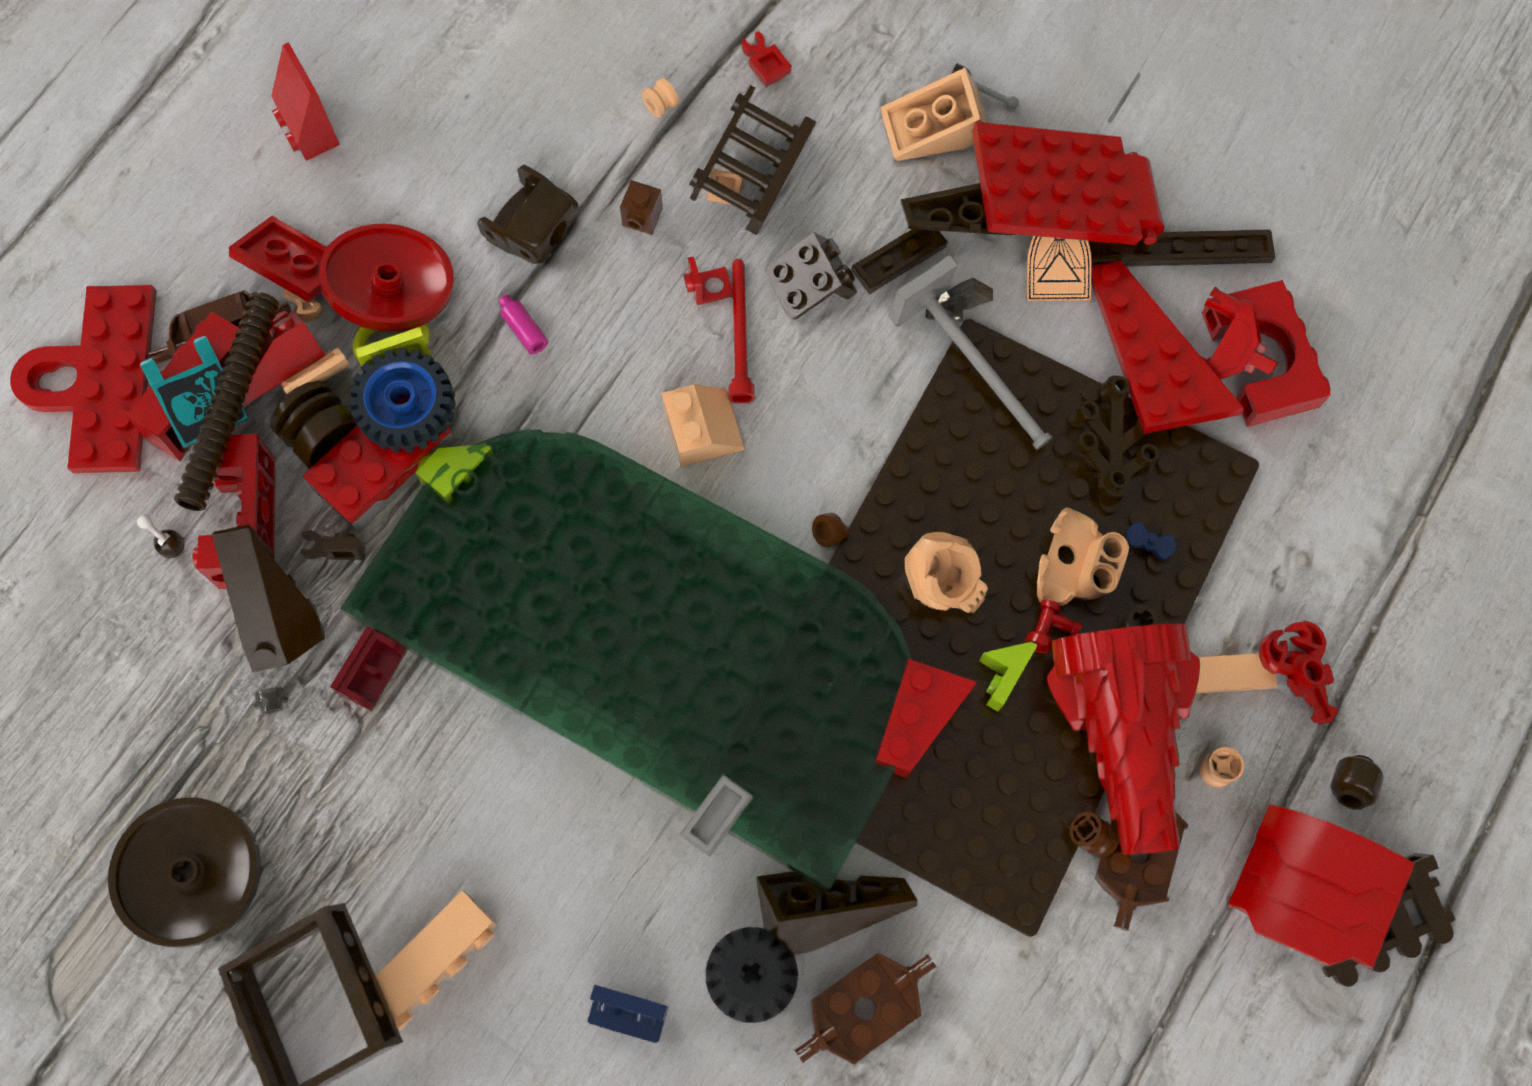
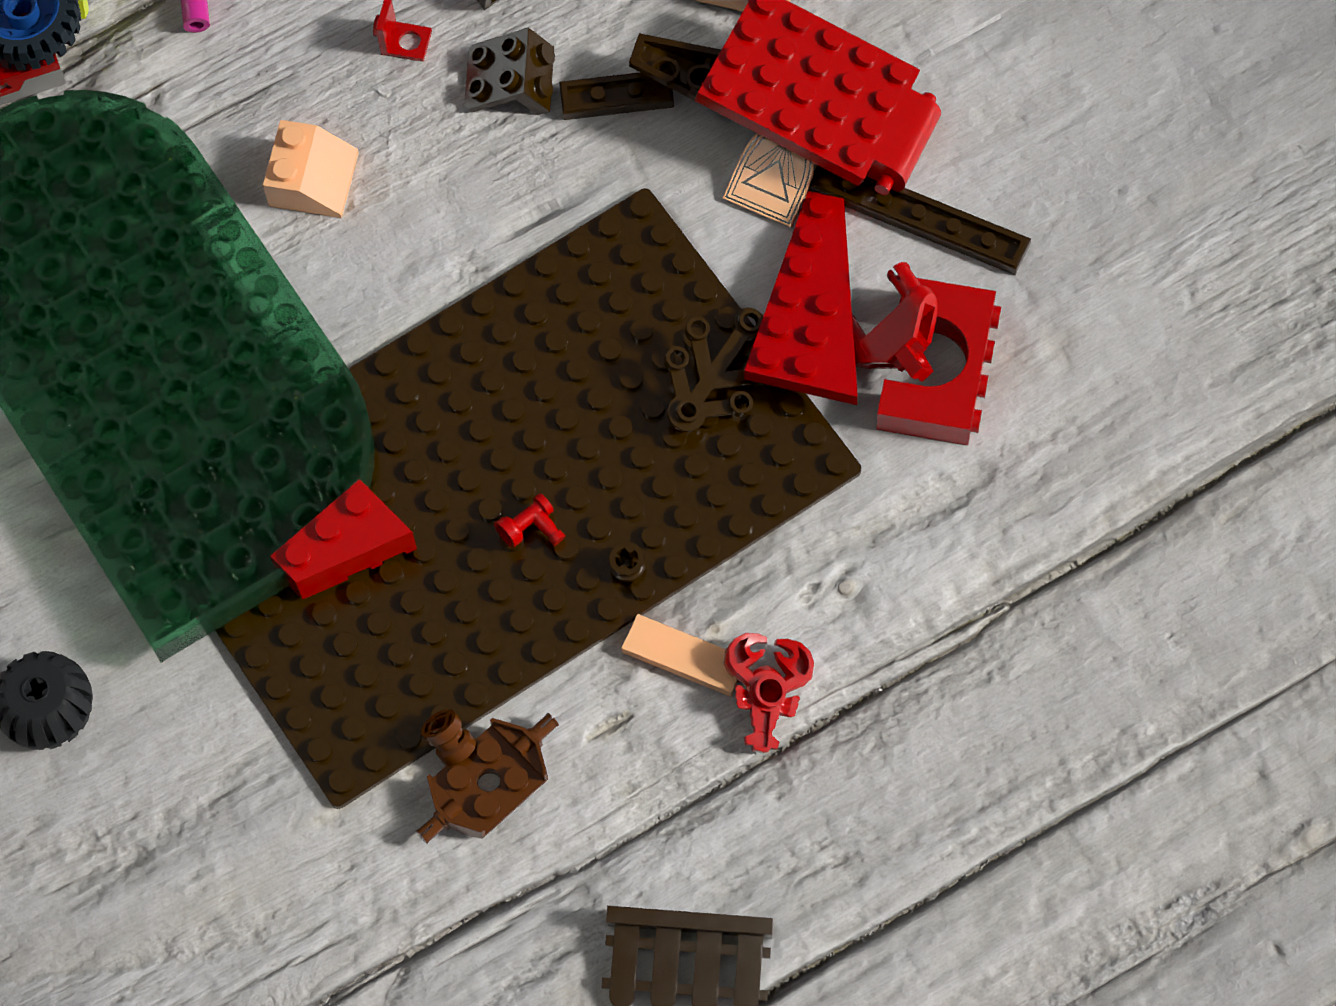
camera: 35 degrees right, 5 degrees down
(457, 459) = (49, 96): lime slope -> none
(716, 816) = (88, 534): light grey tile -> none
(741, 388) = (371, 154): red piece -> none
(812, 917) = (128, 676): dark brown wedge -> none
(829, 529) = (373, 330): reddish brown tile -> none
(896, 1004) = (100, 783): reddish brown plate -> none
(923, 293) = (605, 139): light grey tile -> none
(945, 573) = (452, 418): light nougat helmet -> none
(963, 297) = (646, 163): clear smoke slope -> none
(1009, 663) = (467, 539): lime slope -> none
(1075, 580) = (569, 485): light nougat piece -> none
(1130, 698) = (545, 605): red cone -> none
(1139, 537) = (696, 500): dark blue piece -> none
(1228, 767) = (618, 731): light nougat wheel -> none
(1320, 888) = (637, 894): red slope -> none
(1356, 782) = (749, 820): dark brown head -> none

